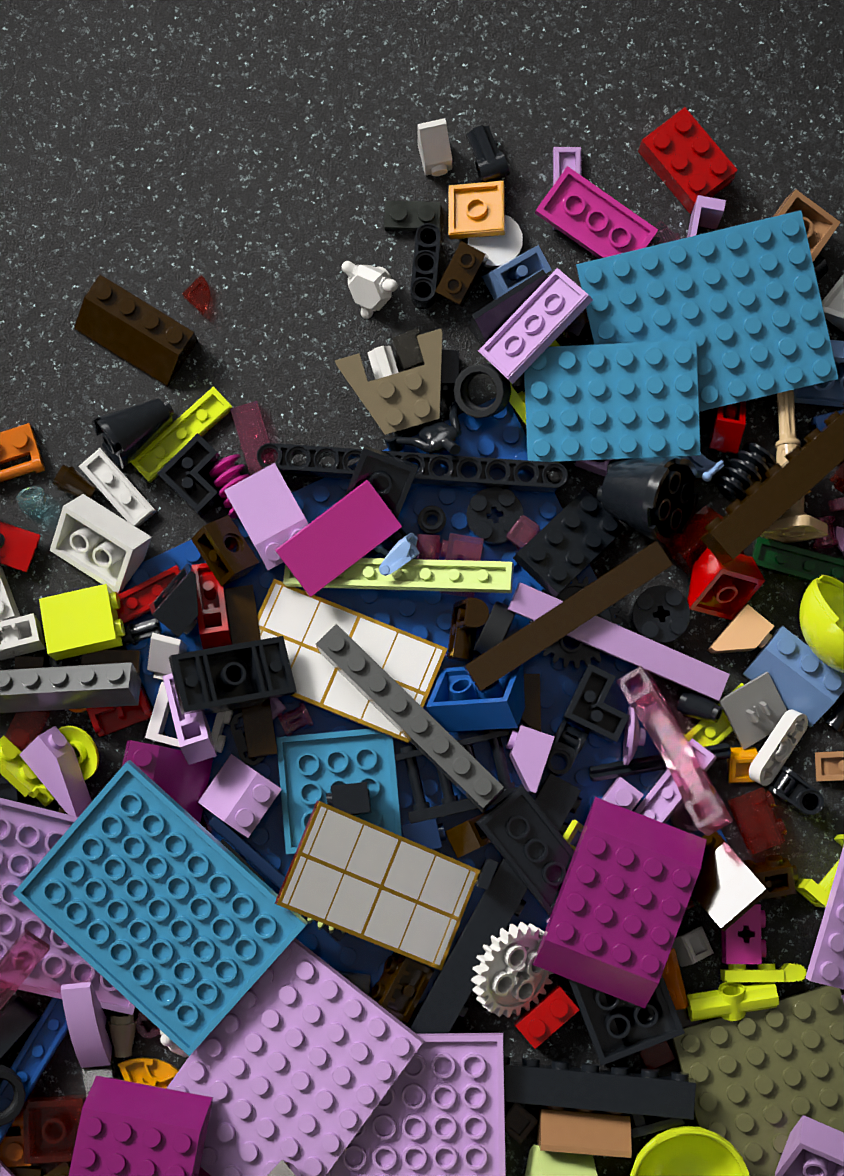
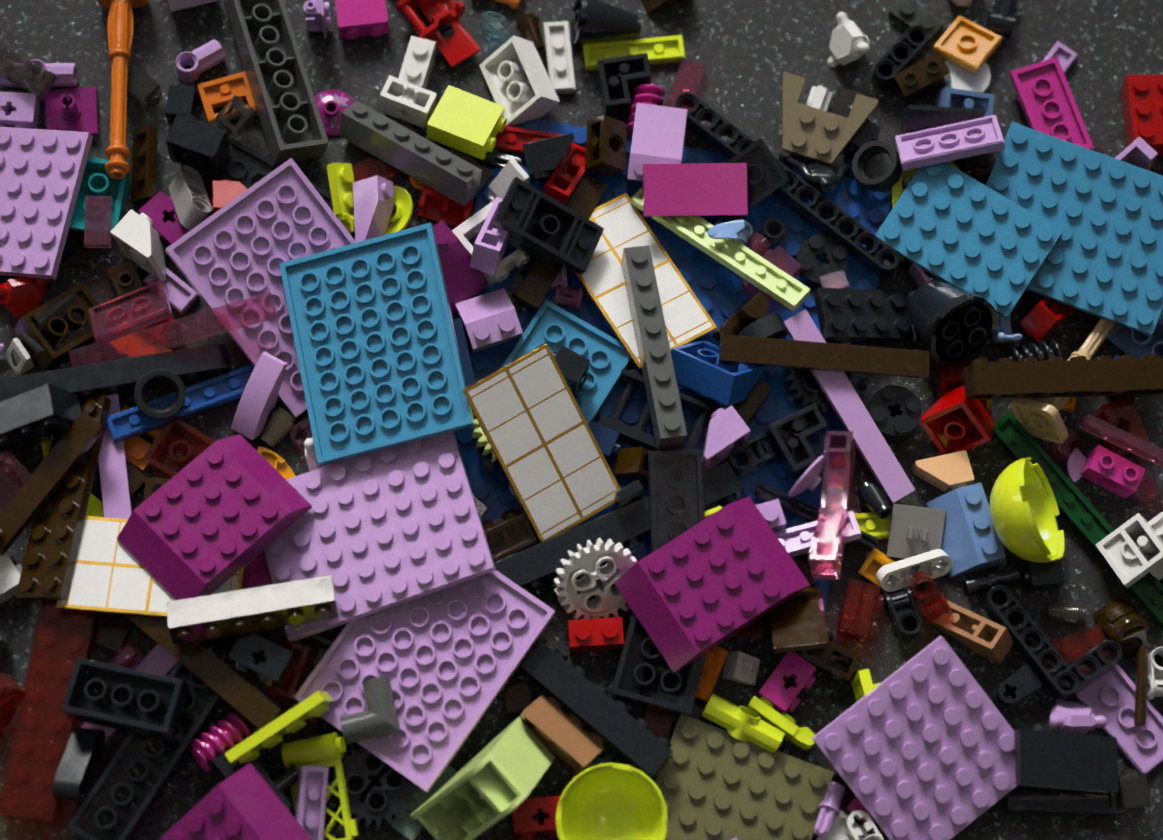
camera: 30 degrees right, 10 degrees down
(813, 765) = (930, 600): none -> clear red piece

